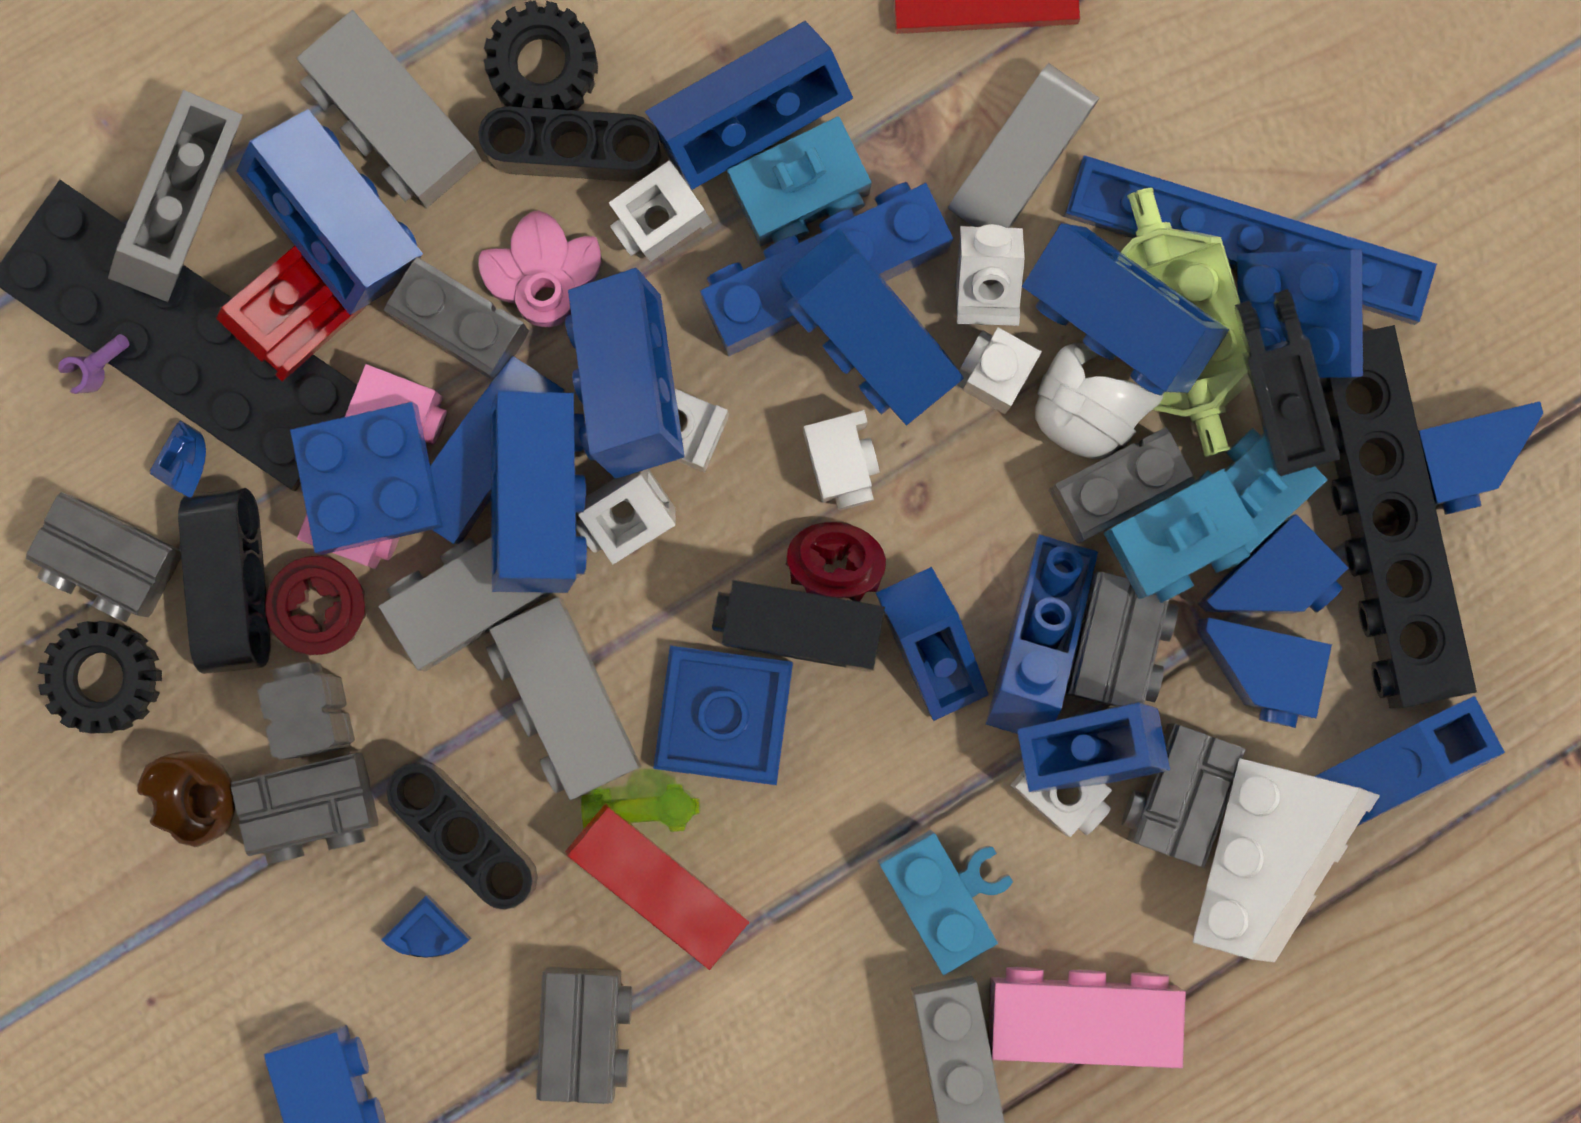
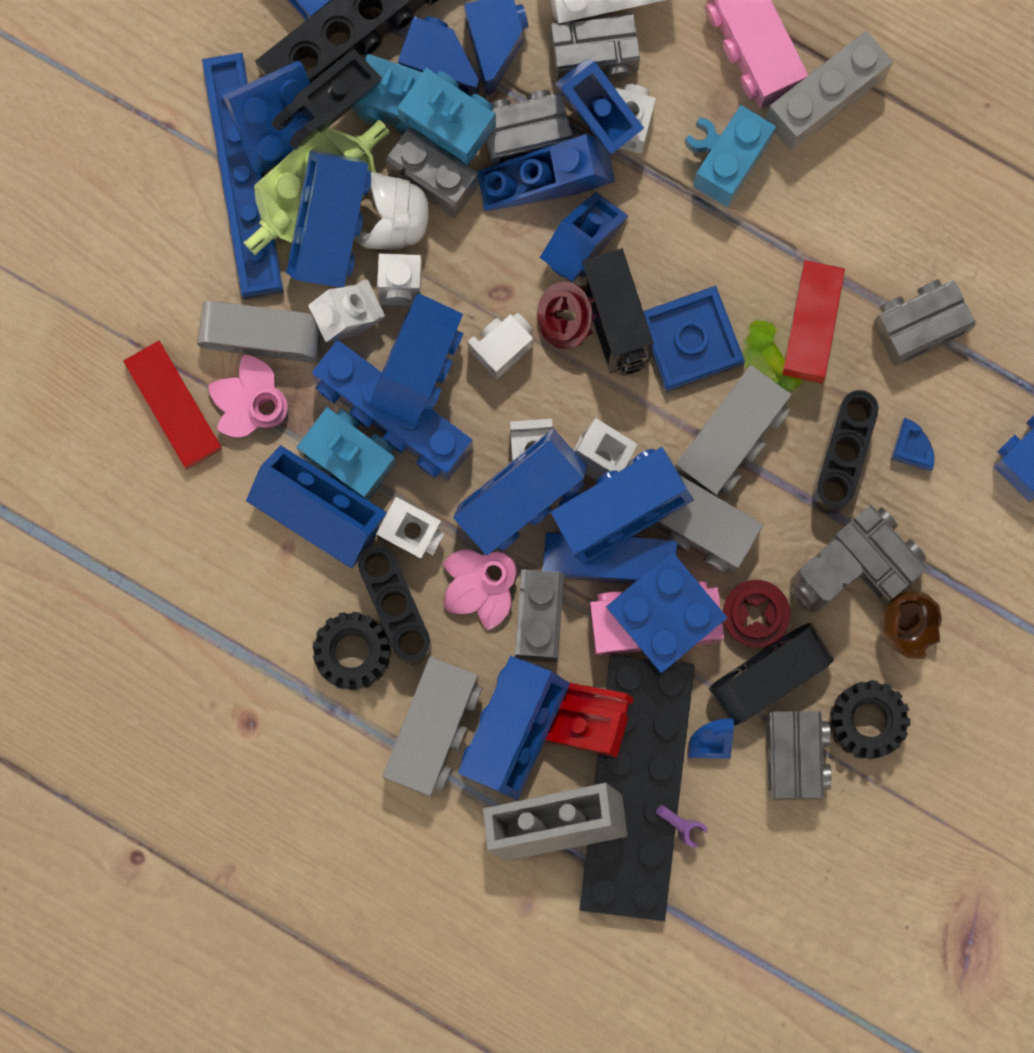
camera: 115 degrees left, 5 degrees down
(947, 90) = (243, 397): none -> bright pink plate

